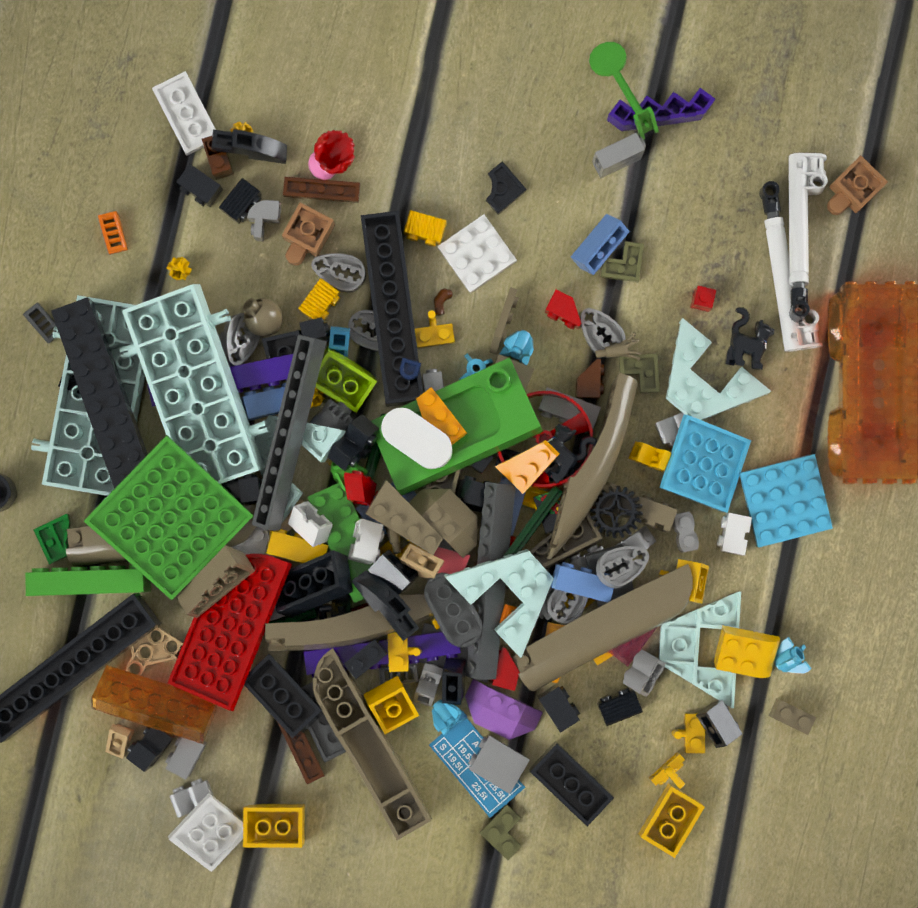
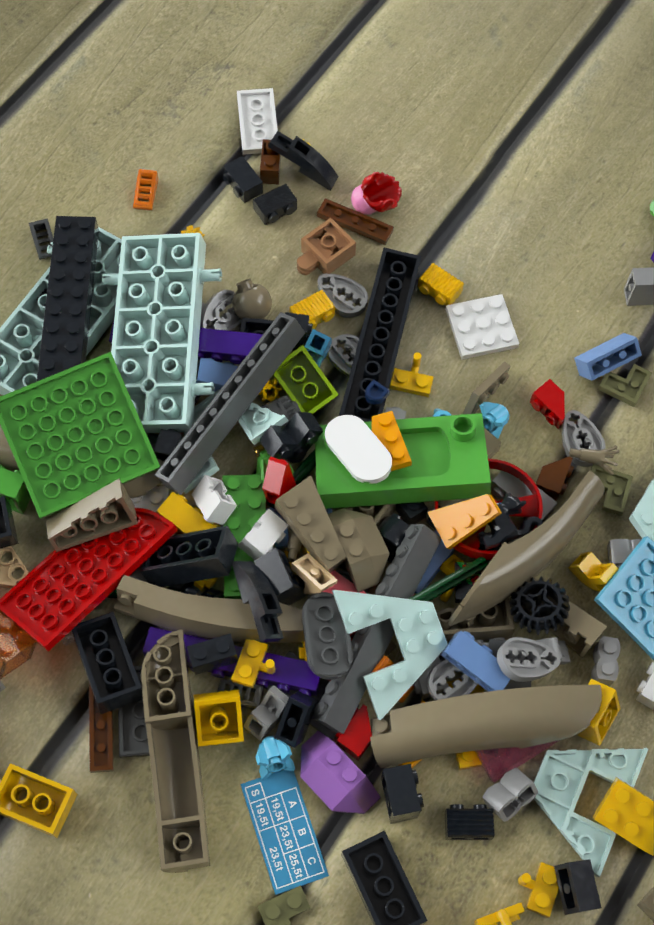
camera: 15 degrees right, 20 degrees down
(261, 213) = (293, 221): light grey brick -> none
(440, 298) = (428, 353): reddish brown arm -> none
(498, 763) = (309, 832): light grey brick -> none
(505, 188) = (530, 281): black tile -> none

